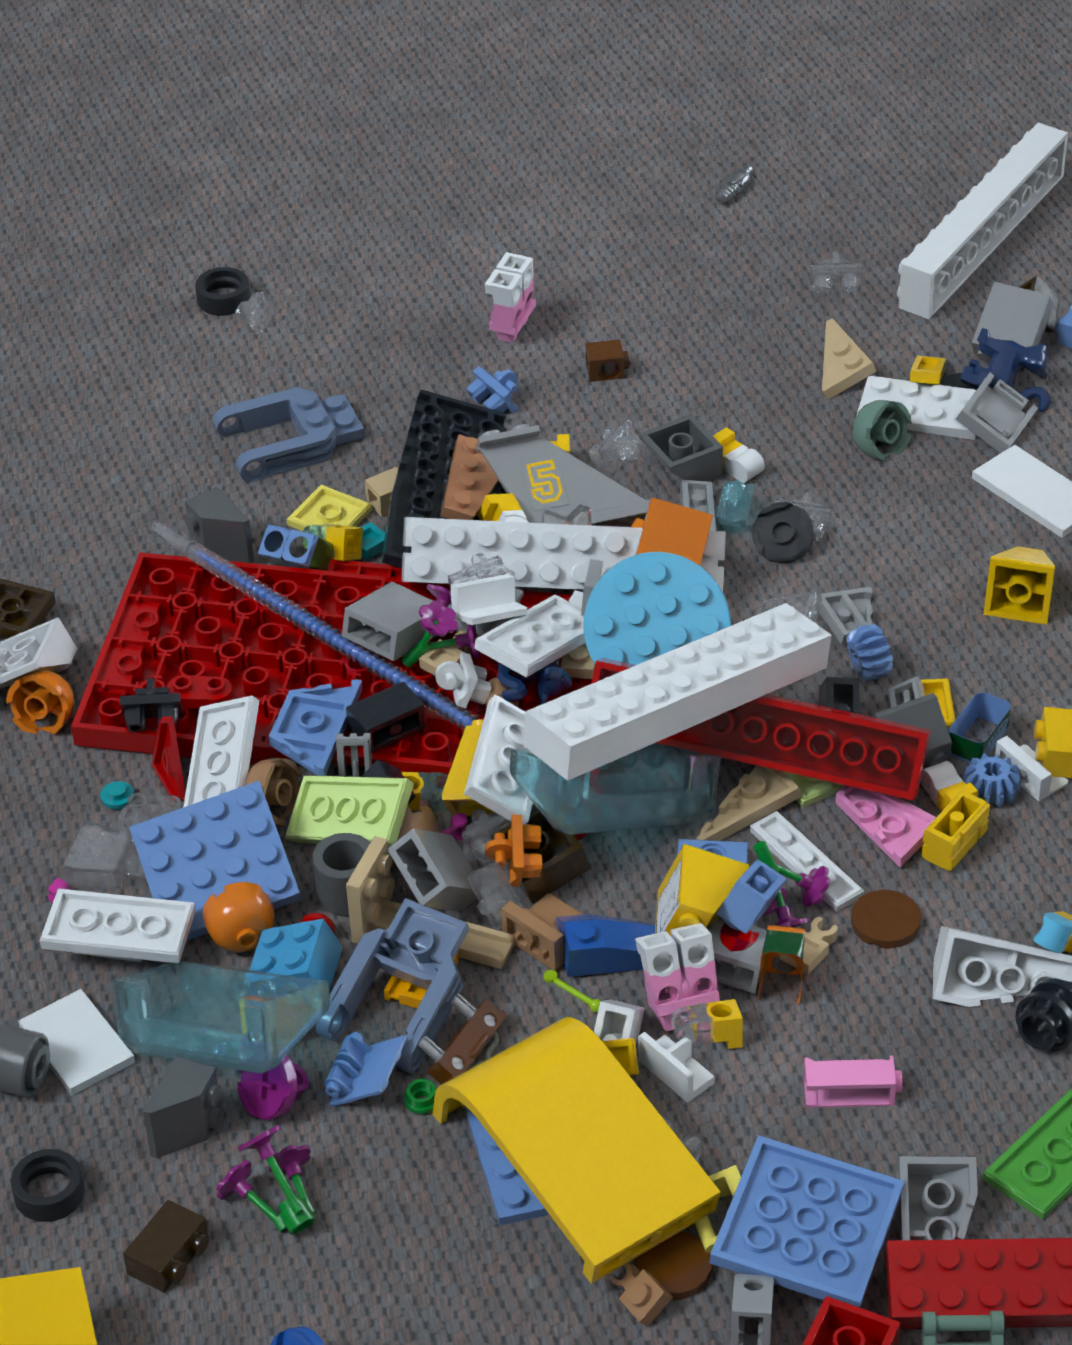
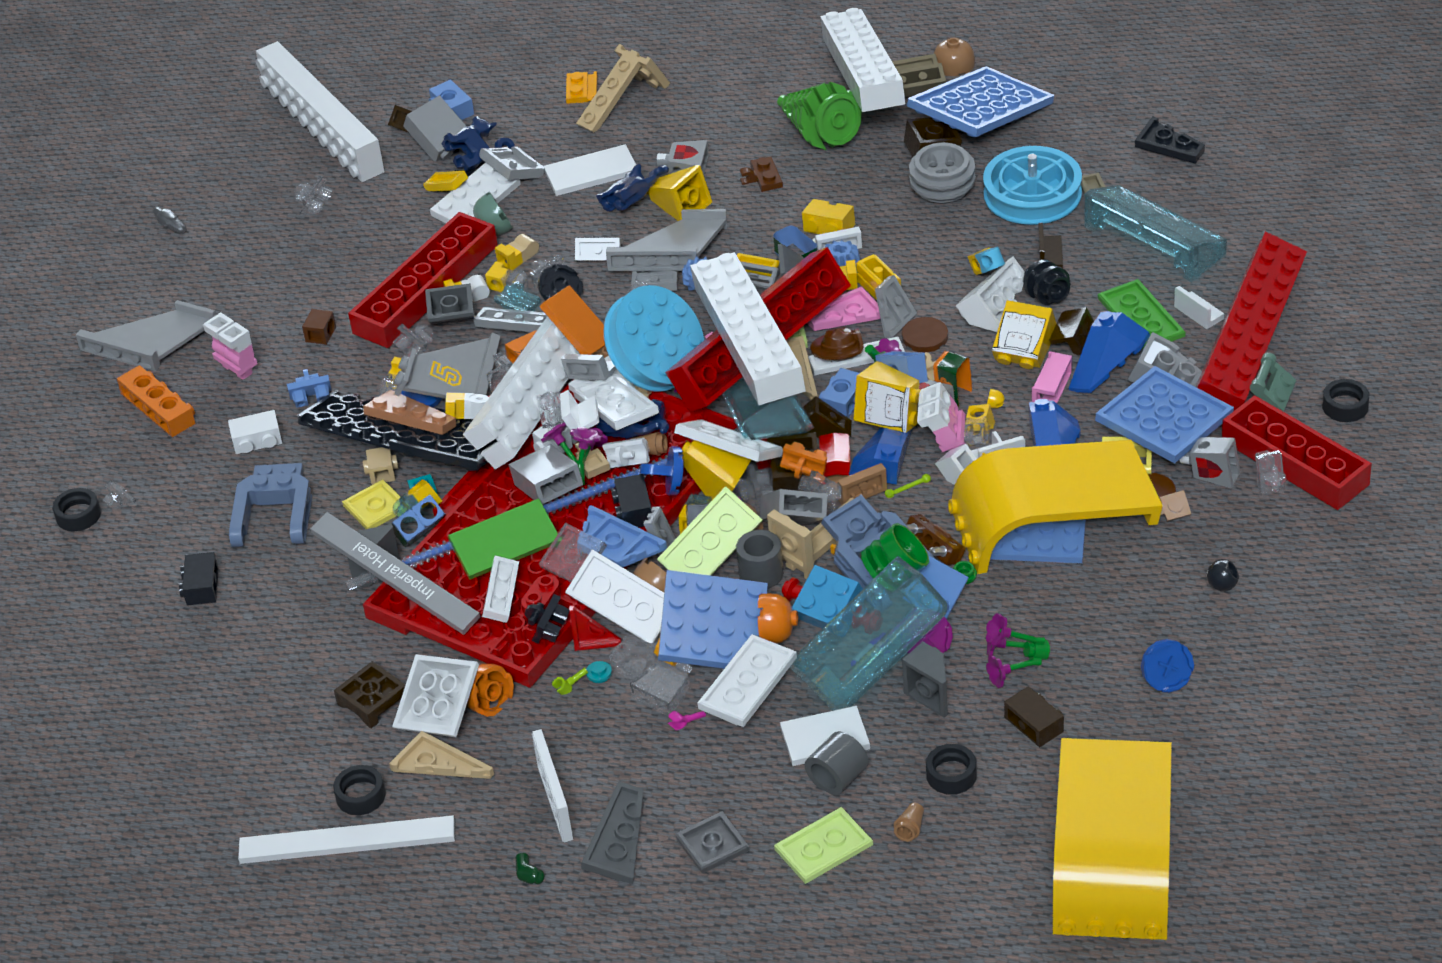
camera: 65 degrees left, 0 degrees up
(86, 773) = (566, 685): none -> lime hand
(147, 418) = (199, 578): none -> black brick
(170, 552) = (395, 573): none -> light grey tile
(189, 651) = (500, 589): none -> white plate
(274, 625) = (505, 535): none -> bright green tile
(275, 688) = (569, 552): none -> clear tile
(396, 998) = (892, 543): none -> green wheel
(400, 374) = (255, 432): none -> white brick
(418, 283) = (156, 400): none -> orange brick
(439, 726) = (672, 470): none -> blue tile
(517, 231) = (147, 339): none -> light grey piece
(583, 891) = (838, 453): none -> piece
(645, 861) = (826, 418): none -> dark brown slope
(728, 1106) = (1052, 424): none -> blue wedge
(758, 412) = (402, 295): none -> red brick
(774, 480) = (503, 276): none -> leg
(784, 1030) = (995, 399): none -> yellow hinge
(809, 831) = (838, 344): none -> reddish brown hat
(832, 475) = (517, 251): none -> leg
(843, 361) = (408, 216): tan wing -> none
(882, 545) = (594, 248): none -> white panel
(906, 862) = (893, 306): none -> light grey wing
(920, 609) = (670, 246): none -> light grey piece
(922, 1021) = (1023, 334): none -> slope
(947, 1123) = (1107, 345): none -> blue wedge
(971, 1079) = (1073, 328): none -> dark brown panel
(1006, 531) = (630, 189): none -> dark blue animal

